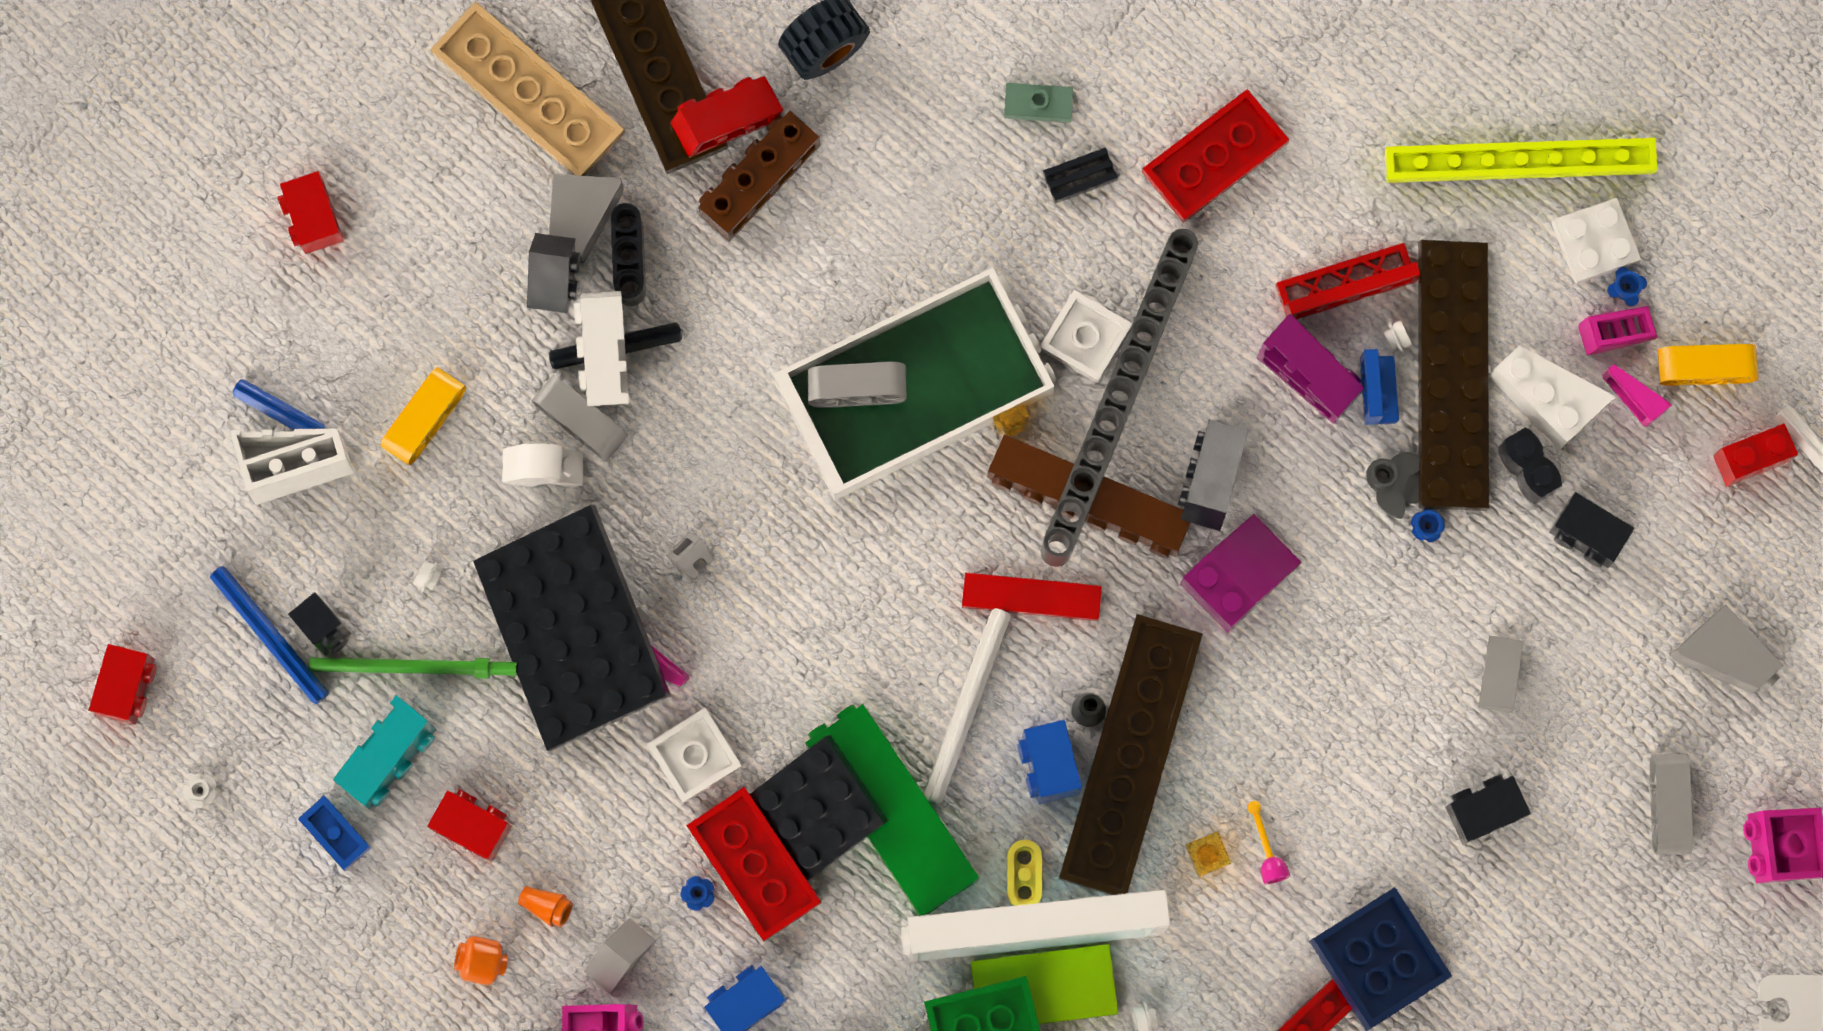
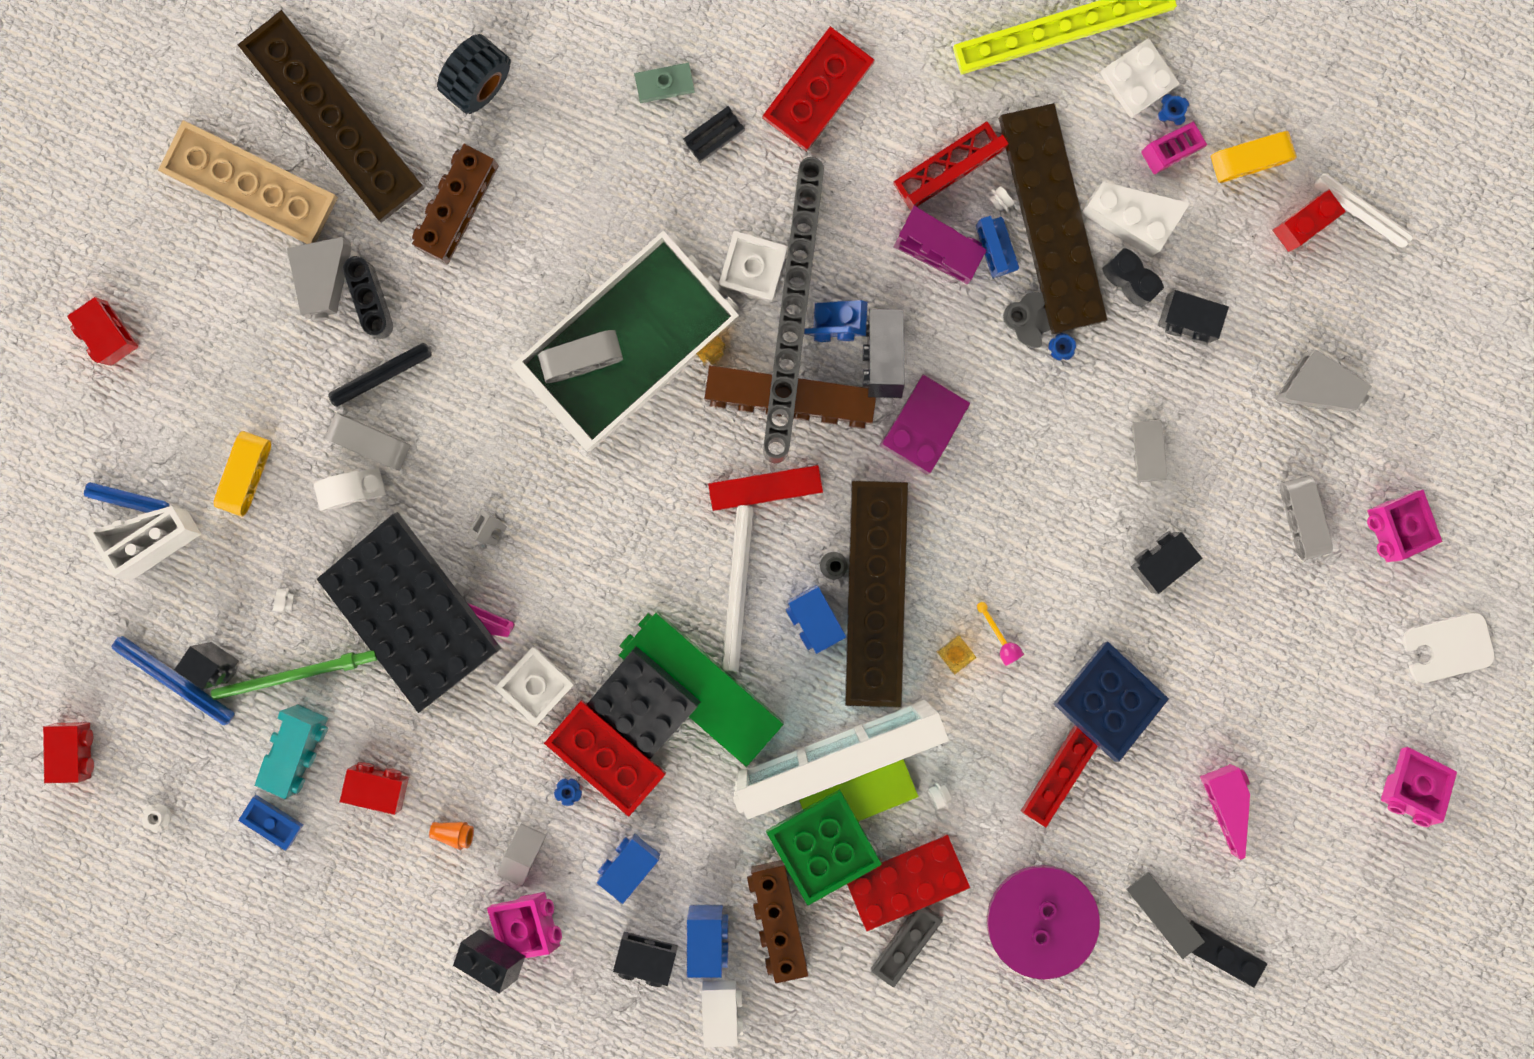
camera: 15 degrees left, 10 degrees up
(480, 960) = (413, 891): orange head -> none
(552, 273) = (308, 330): brick -> none
(602, 348) = (367, 383): white wedge -> none
(726, 115) = (412, 161): red brick -> none
(1024, 875) = (817, 708): light yellow plate -> none
(1169, 423) = (838, 320): none -> blue bracket
(1638, 398) = (1203, 198): dark pink slope -> none

